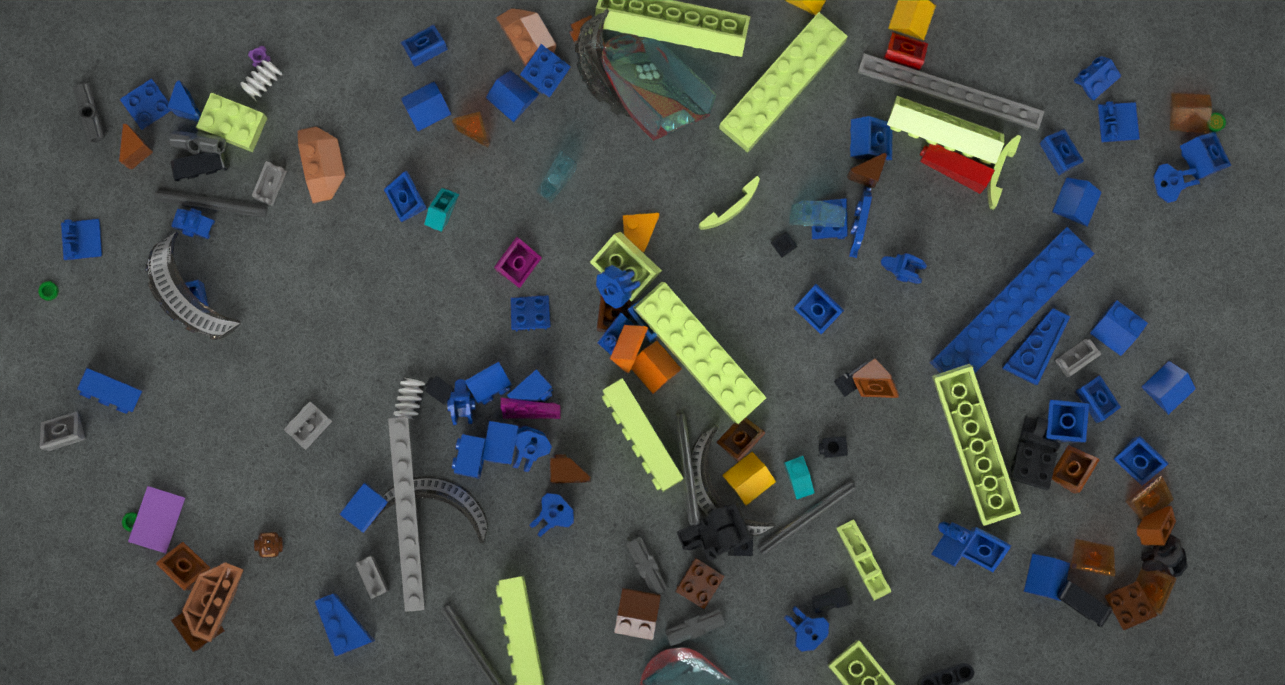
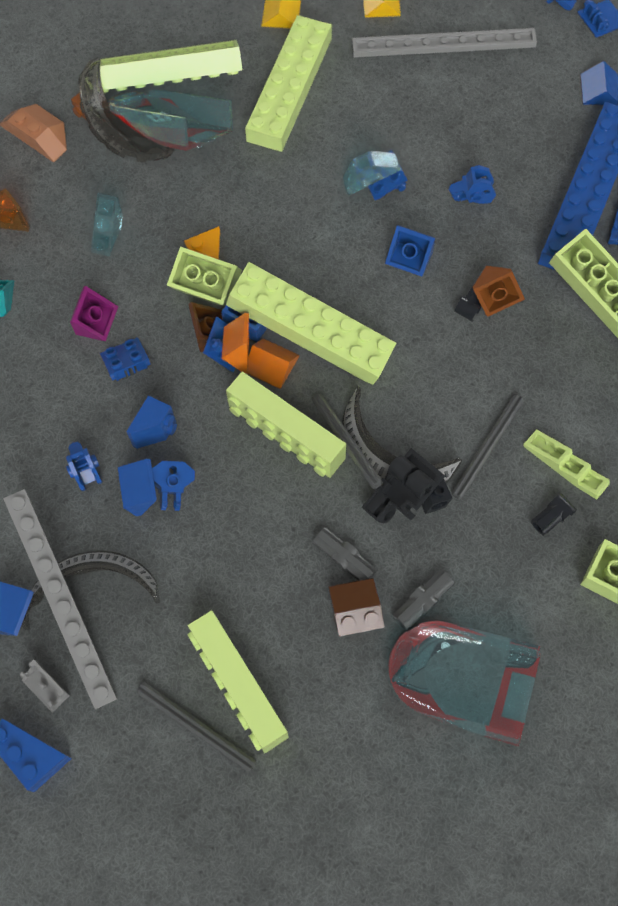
camera: 20 degrees left, 15 degrees down
(409, 398) = (22, 478): white piece -> none
(439, 389) = (54, 462): black brick -> none
(469, 458) = (110, 517): blue brick -> none
(489, 383) = (104, 434): blue slope -> none
(511, 95) = (35, 179): blue slope -> none
(529, 410) = (157, 444): magenta wing -> none
(545, 70) = (60, 144): blue hinge -> none
(551, 514) = (223, 541): blue hinge -> none
(566, 471) = (222, 488): reddish brown slope -> none
(617, 285) = (202, 289): blue hinge -> none
(699, 583) = (408, 552): reddish brown hinge -> none
(713, 220) = (276, 213): yellowish green slope -> none
(740, 438) = (388, 394): reddish brown slope -> none
(749, 478) = (413, 429): yellow slope -> none
(783, 244) = (350, 213): black tile -> none
(799, 477) = (462, 408): teal slope -> none
(806, 629) = (547, 554): blue hinge -> none
(839, 441) = (485, 361): black brick -> none
(859, 225) = (414, 161): blue wing -> none
(868, 172) = (400, 121): reddish brown slope -> none
(870, 138) = (390, 99): blue slope -> none
(906, 51) = (389, 26): red slope -> none
(946, 130) = (456, 64): yellowish green brick -> none
(957, 167) = (482, 92): red slope -> none
(993, 191) = (522, 101): yellowish green slope -> none
(1061, 151) = (564, 55): blue slope -> none

